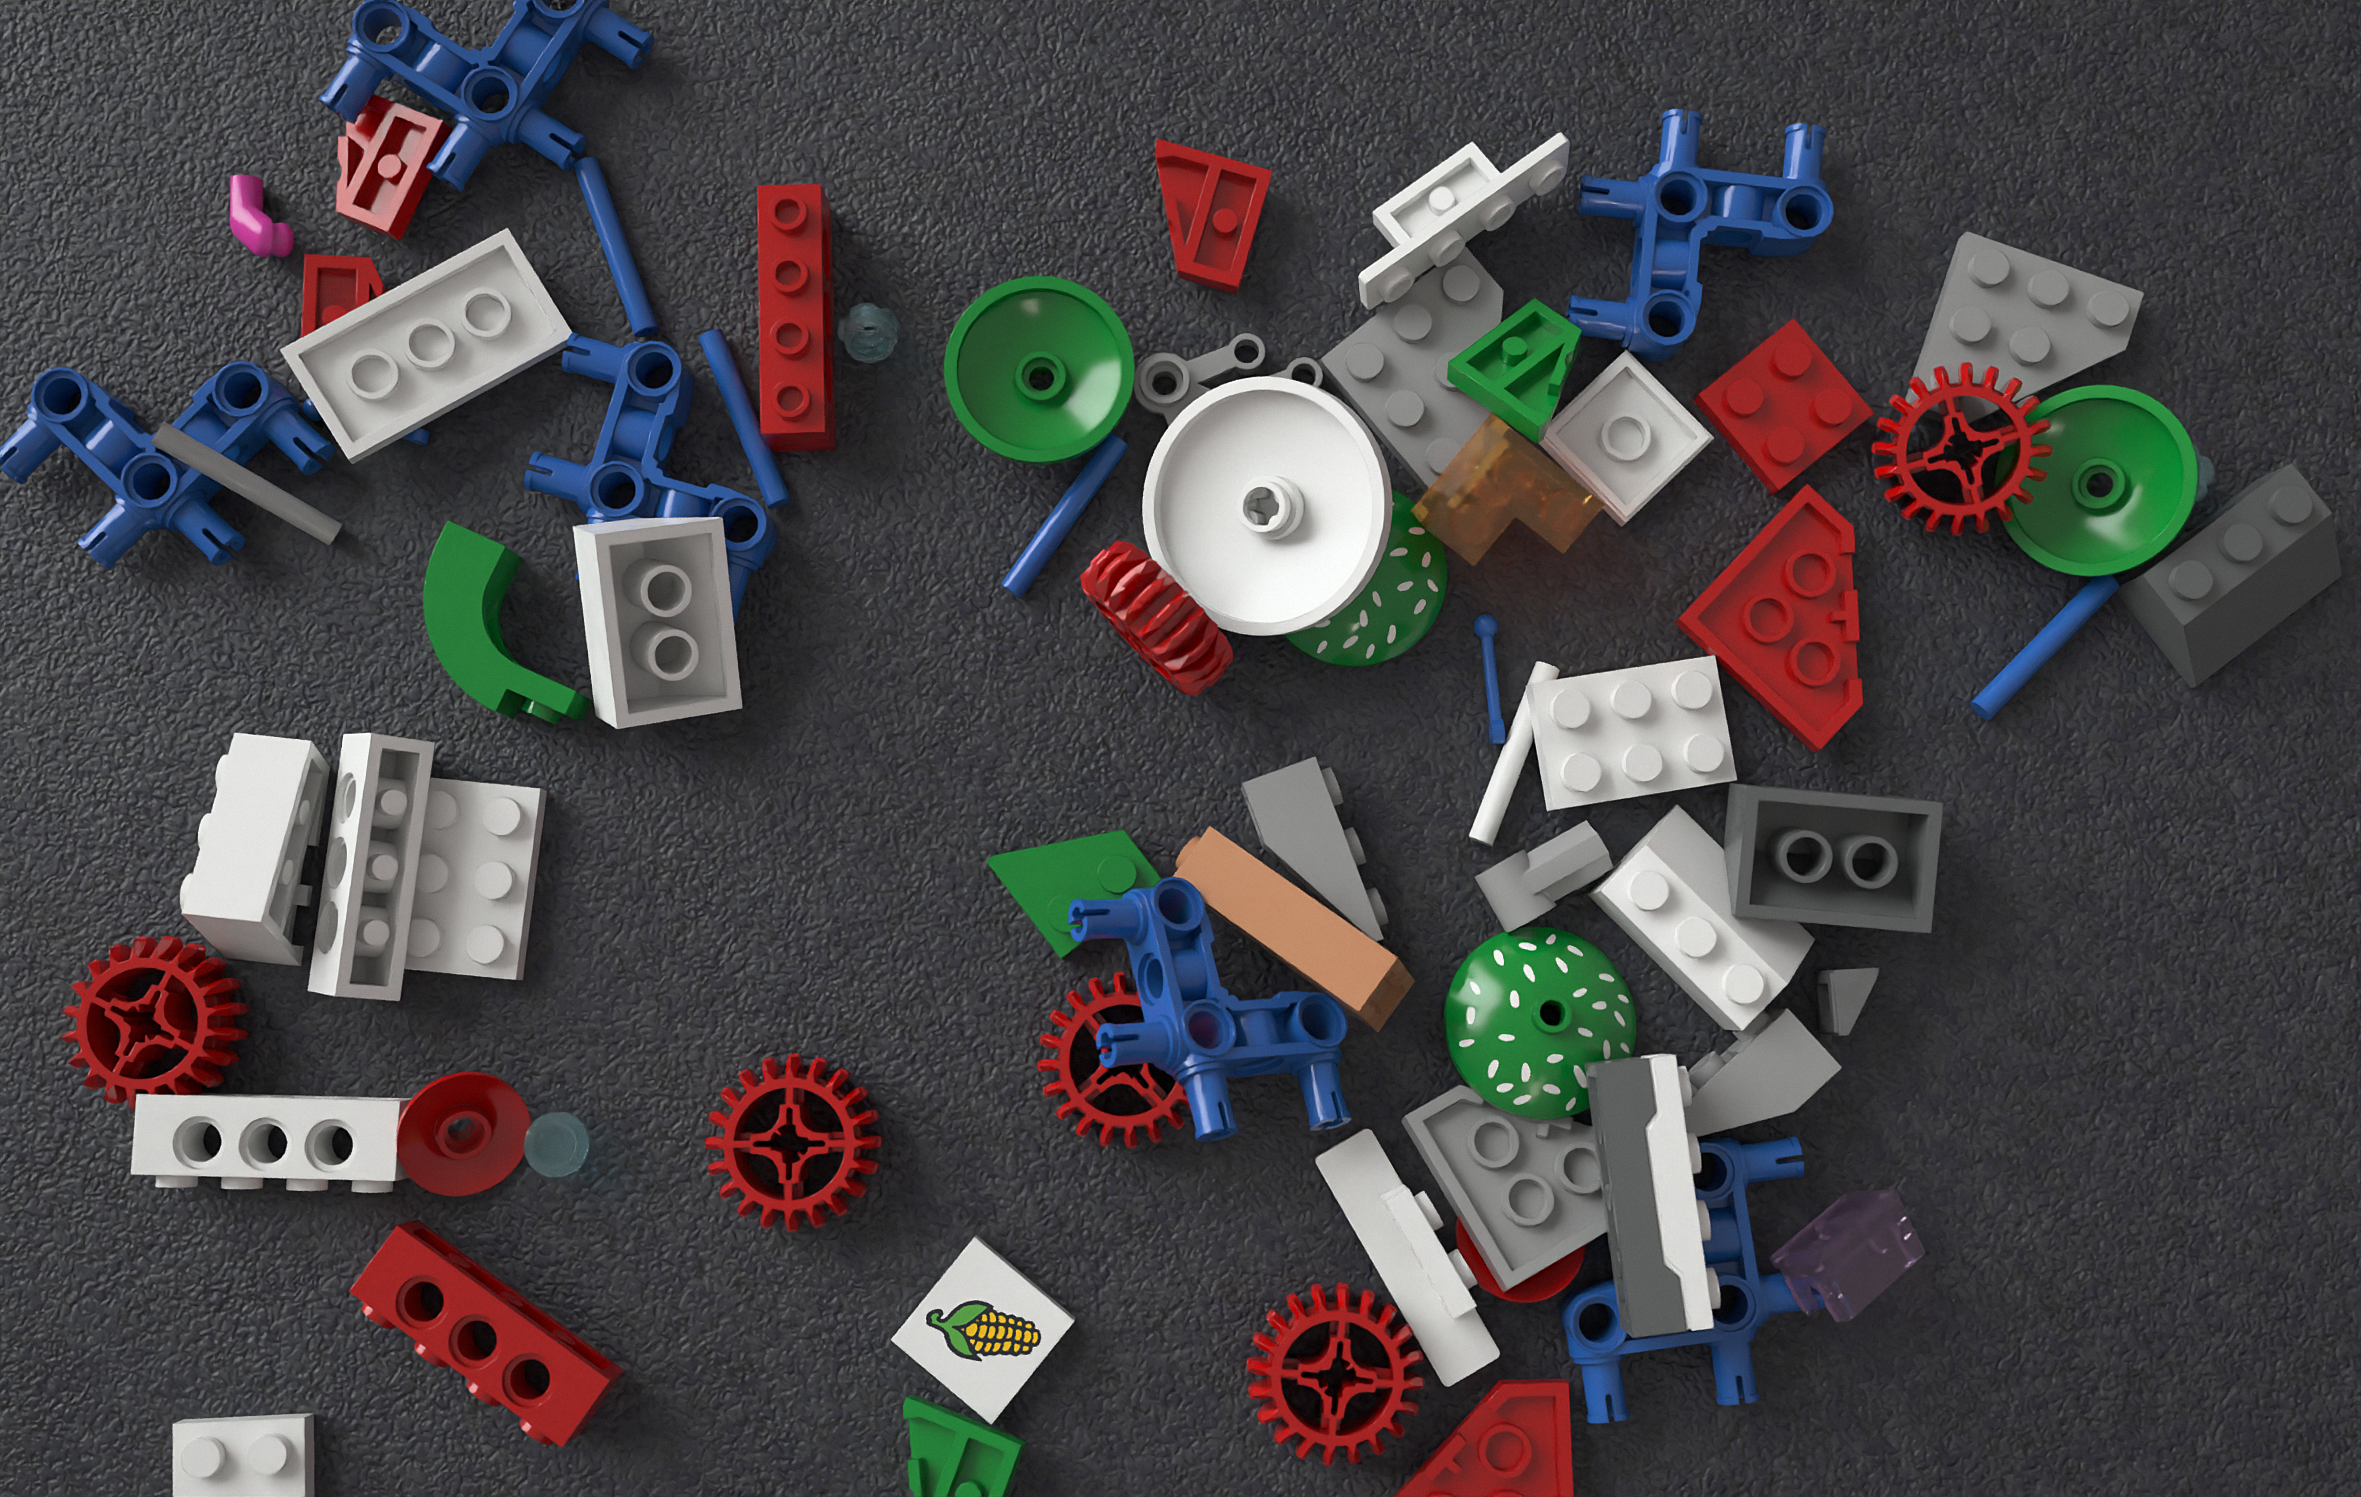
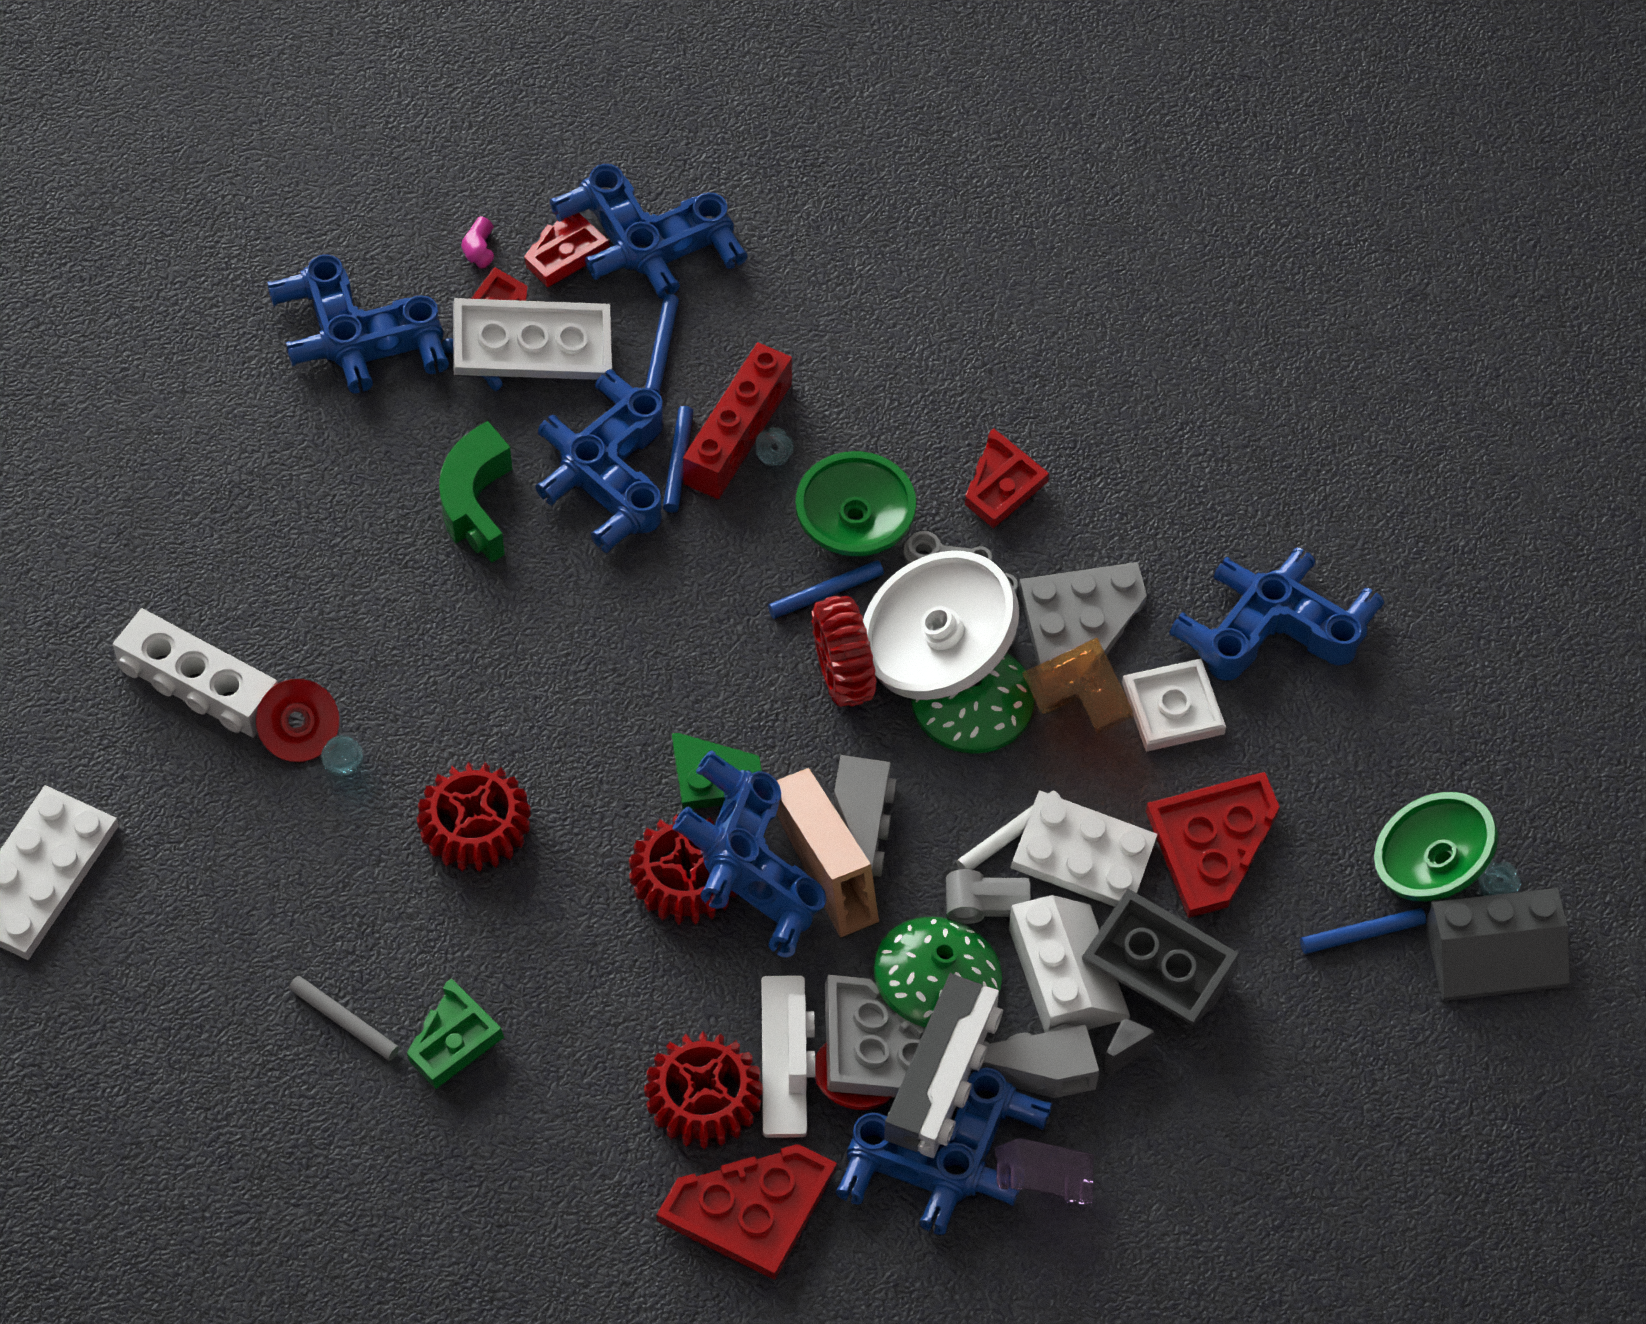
camera: 30 degrees right, 25 degrees down
(126, 1064) = (180, 568): red gear -> none
(246, 483) = (393, 356): light grey bar -> none
(255, 848) = (278, 529): white wedge -> none
(371, 866) = (336, 565): white brick -> none
(471, 1293) = (223, 770): red brick -> none
(475, 879) = (380, 605): white plate -> none
(658, 619) = (570, 518): white slope -> none
(983, 1329) = (517, 969): white tile -> none
(1451, 206) = (1140, 540): white bracket -> none
(1486, 627) = (1033, 761): blue hinge -> none
(1520, 367) = (1129, 628): green wing -> none
(1783, 406) = (1278, 733): red plate -> none
(1975, 501) = (1335, 785): red gear -> none
(2024, 319) = (1438, 754): light grey plate -> none

